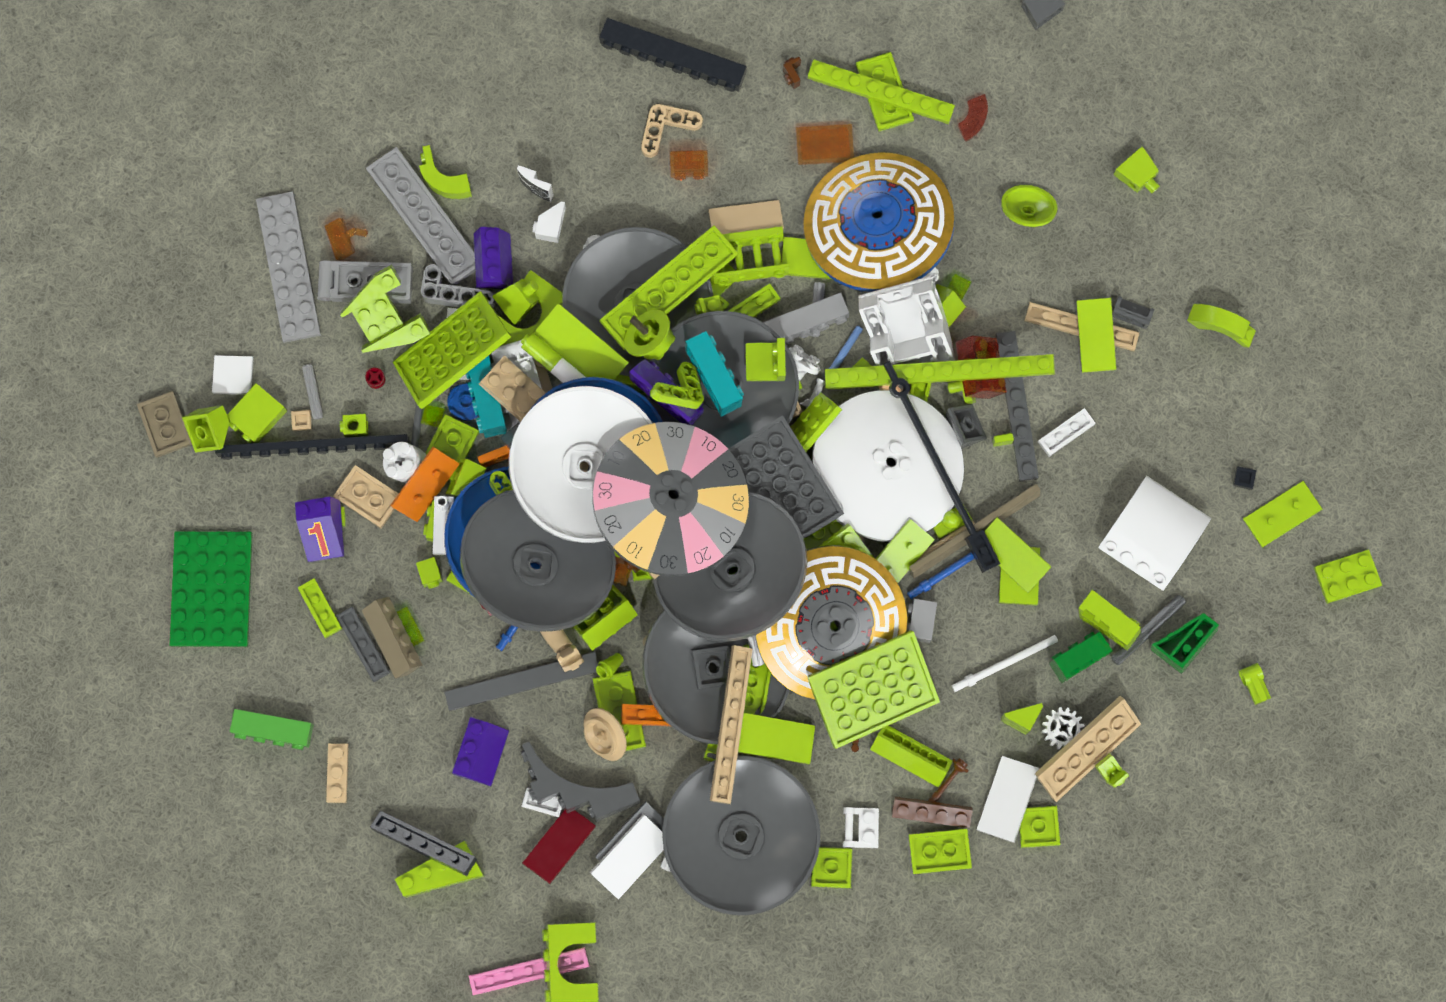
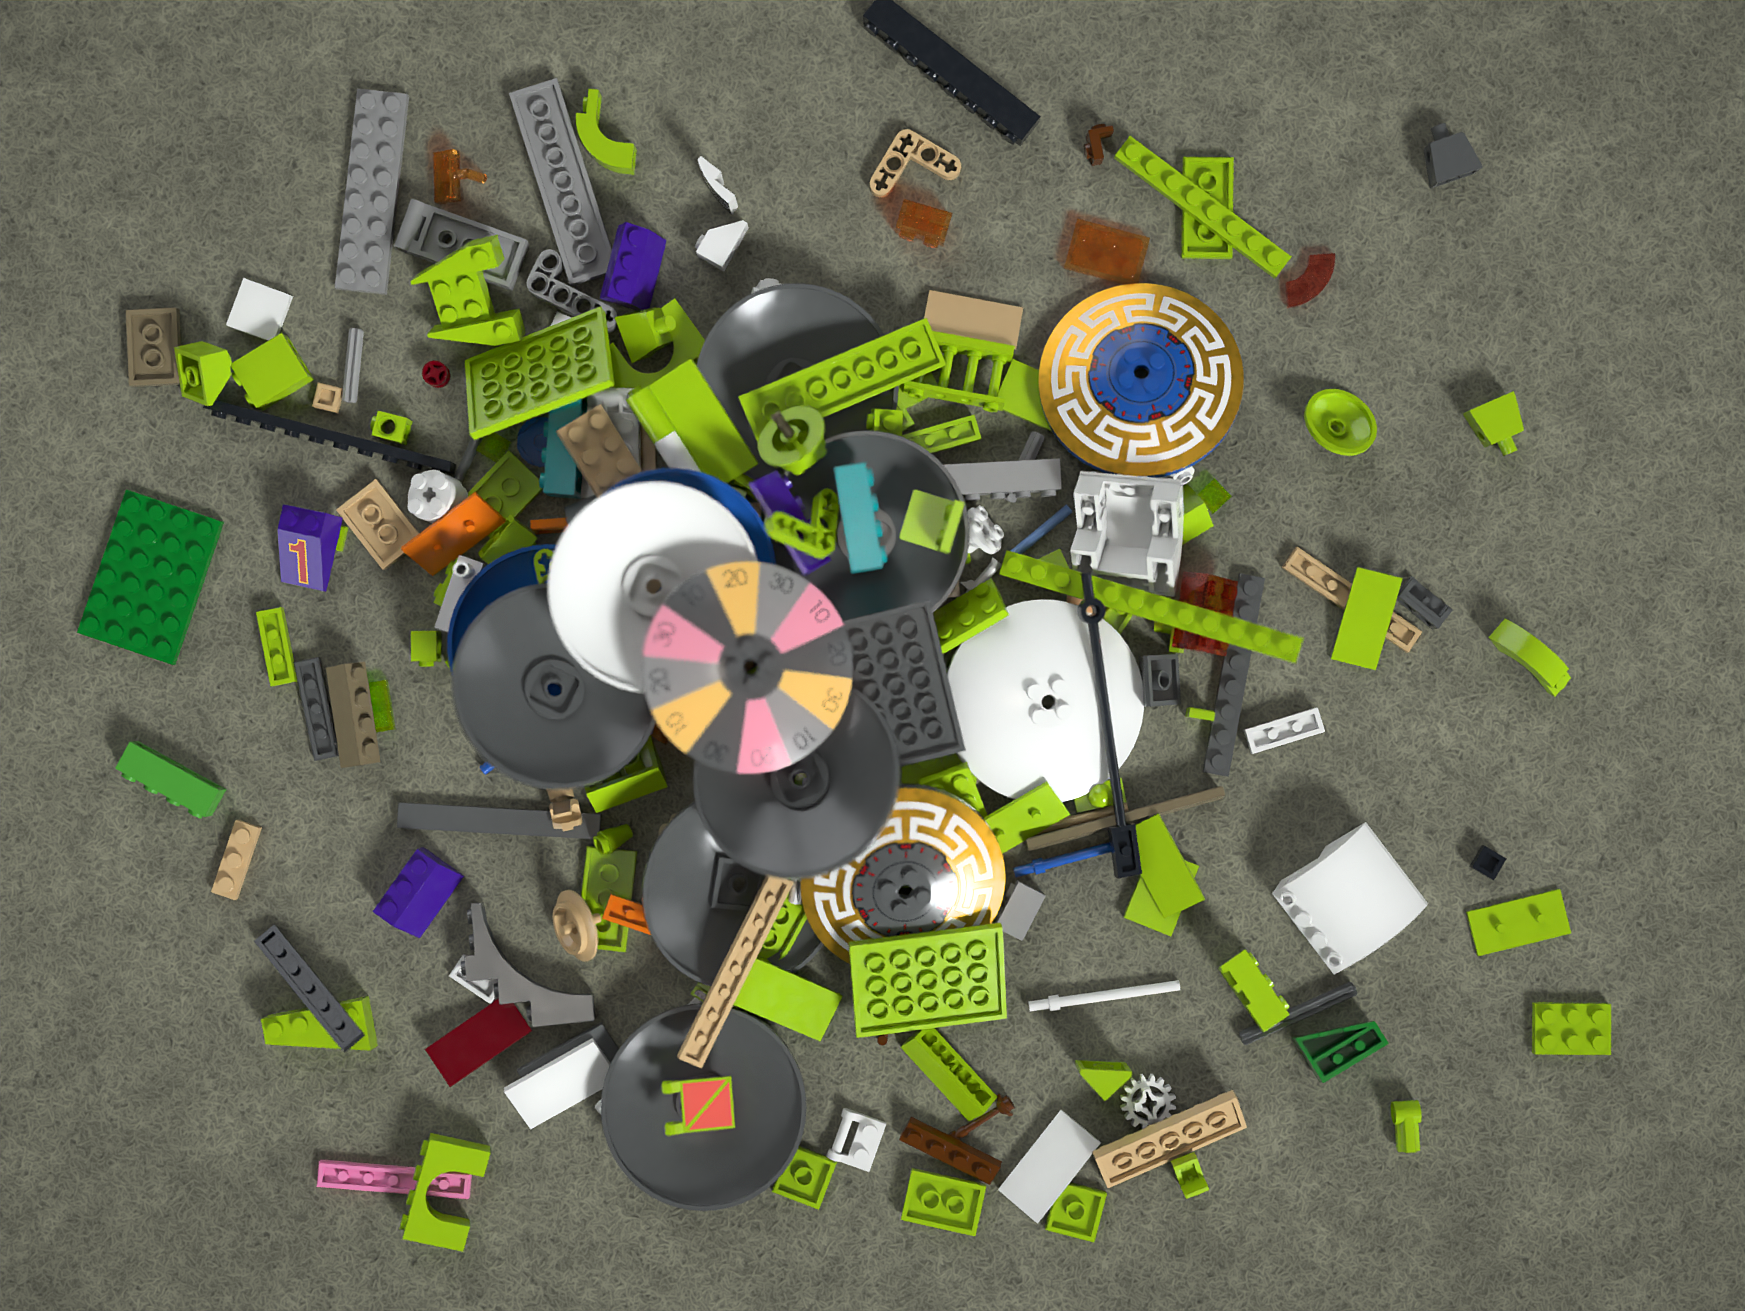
camera: 20 degrees right, 10 degrees up
(741, 830) = (704, 1103): none -> coral flag
(1080, 656) = (1201, 1020): green wedge -> none

